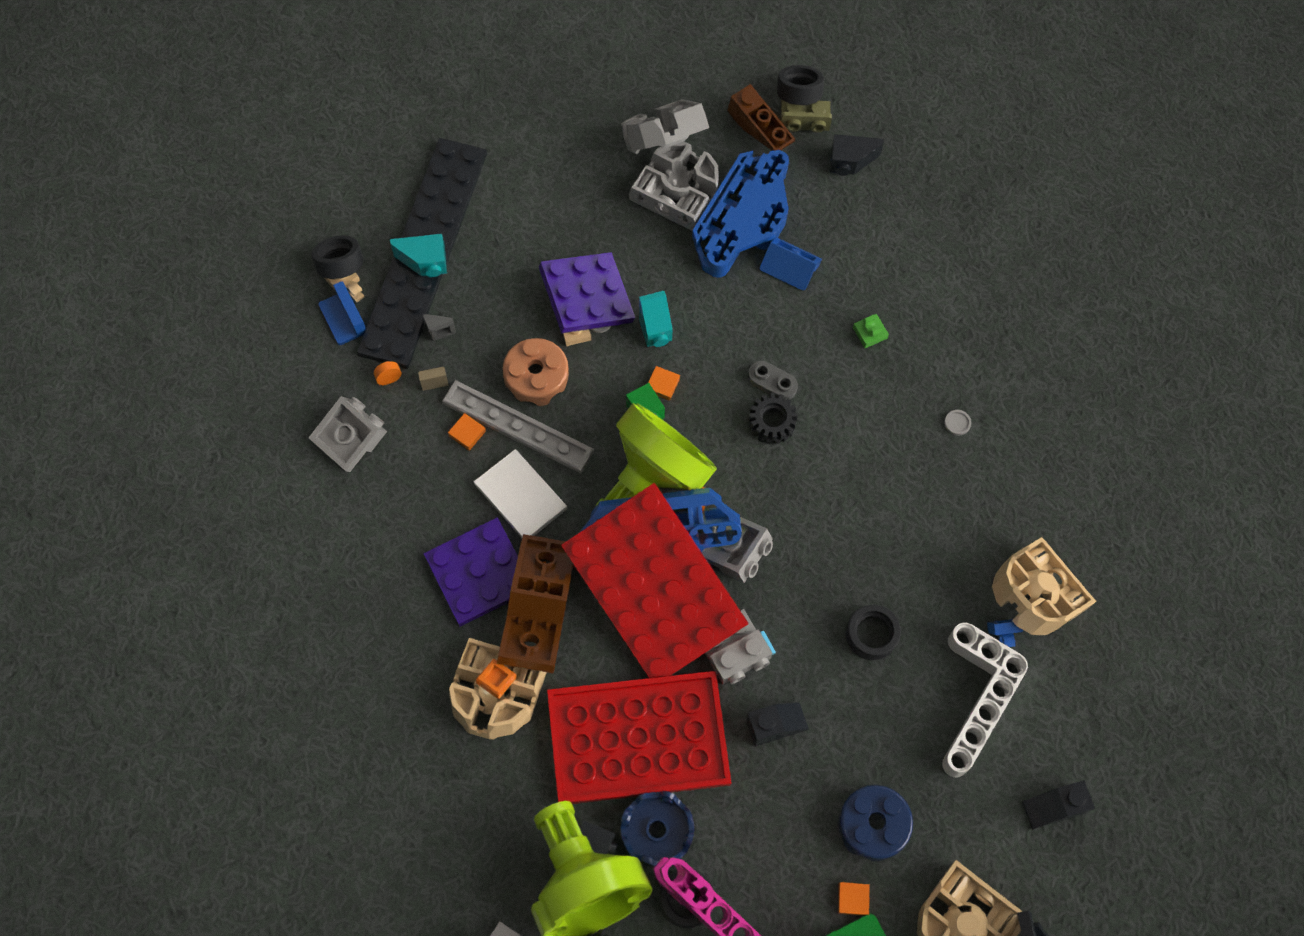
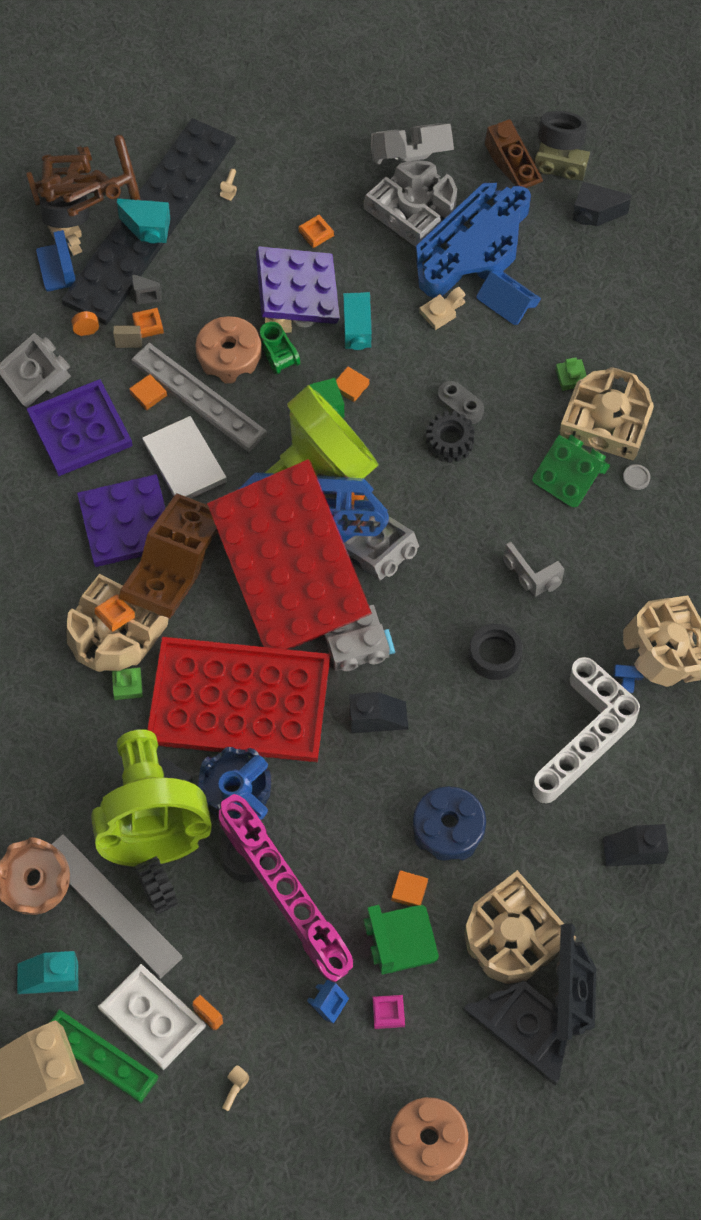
camera: 15 degrees right, 5 degrees down
(322, 238) = (96, 182): none -> reddish brown piece
(408, 483) = (79, 427): none -> dark purple plate
(449, 358) = (149, 322): none -> orange tile
(492, 205) = (228, 190): none -> tan hand
(523, 744) = (127, 684): none -> bright green tile
(587, 364) = (280, 351): none -> green piece
(589, 231) = (316, 231): none -> orange tile
(667, 825) = (243, 779): none -> blue axle
(729, 289) = (441, 310): none -> tan plate
(884, 550) = (546, 579): none -> light grey bracket
(895, 430) = (569, 470): none -> green bracket
(910, 366) = (598, 410): none -> tan connector

